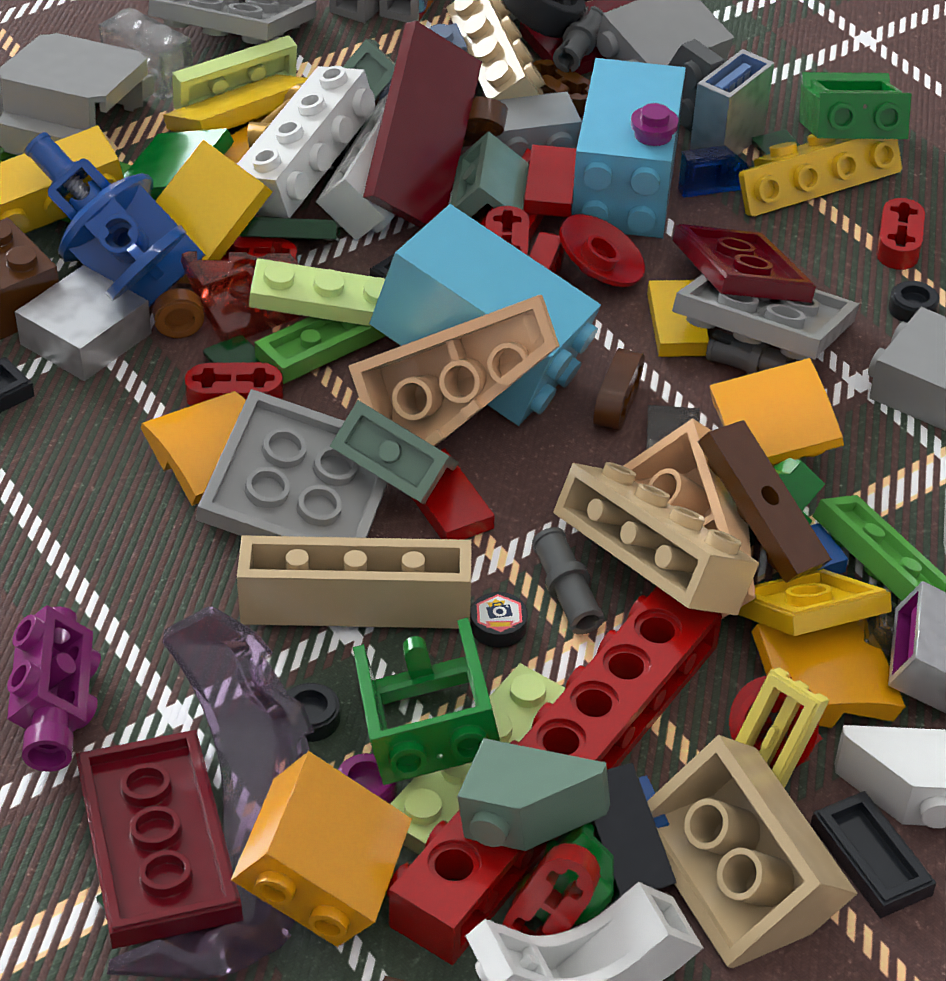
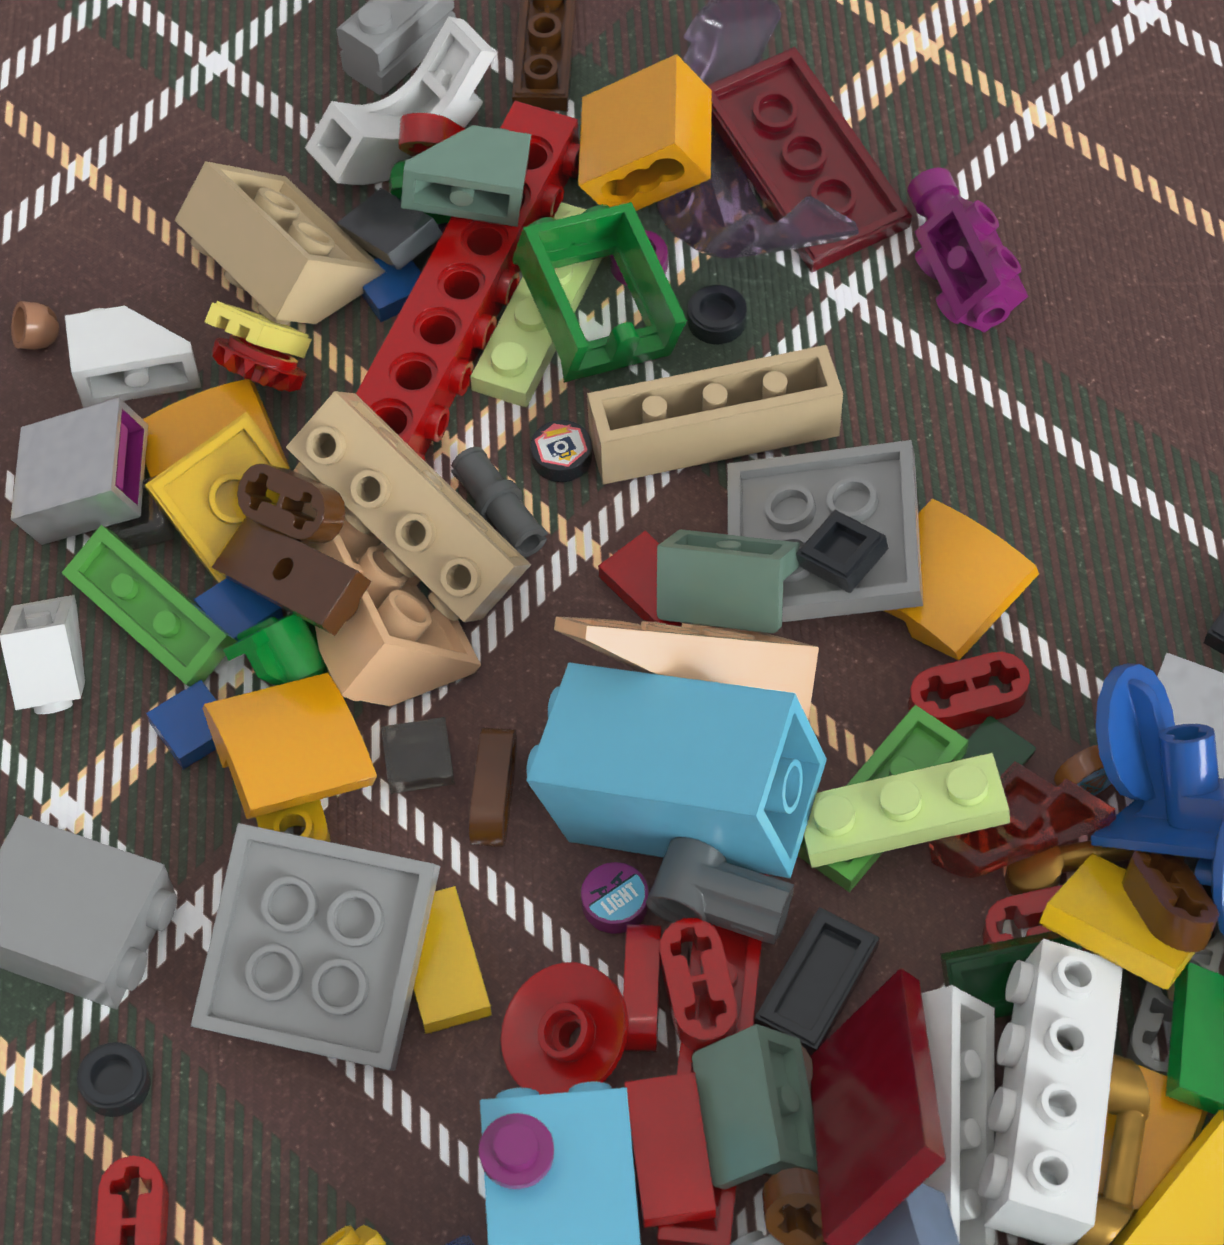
camera: 170 degrees right, 15 degrees up
(185, 196) = (1170, 900): none -> reddish brown beam
(297, 433) = (842, 551): none -> black tile
(743, 263) = (359, 1033): dark red tile -> none
(777, 560) = (294, 493): none -> reddish brown beam
(854, 477) = (183, 724): none -> blue tile
(873, 854) = (160, 291): black tile -> none

